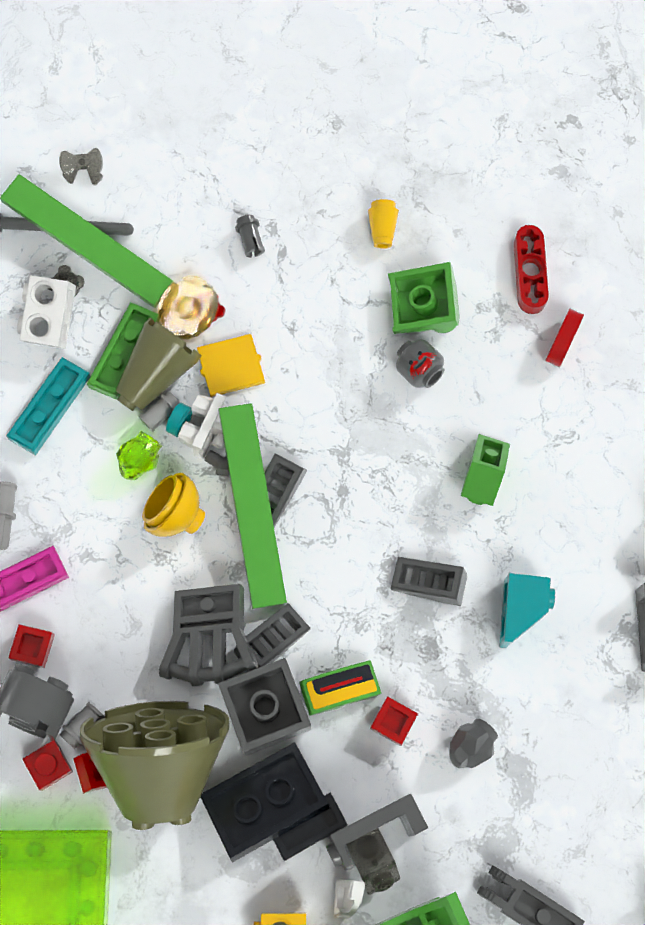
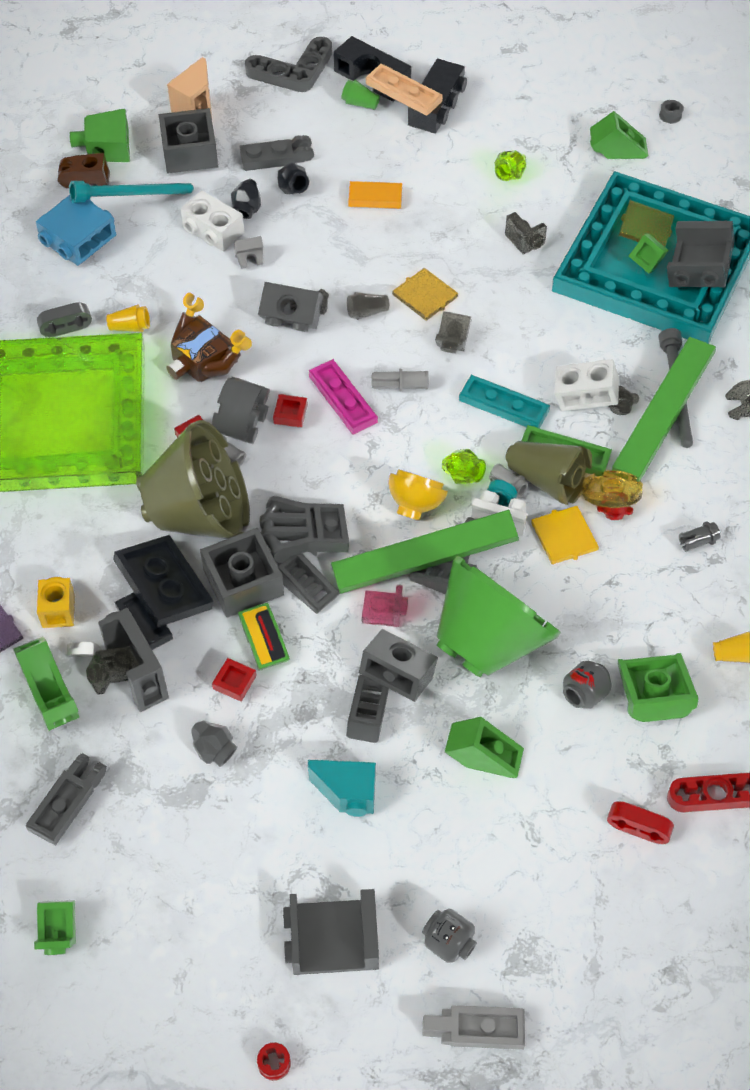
camera: 90 degrees right, 15 degrees down
(311, 555) = (384, 607): none -> clear pink bracket
(358, 442) = (487, 622): none -> bright green cone
(388, 562) = (398, 665): none -> dark grey brick

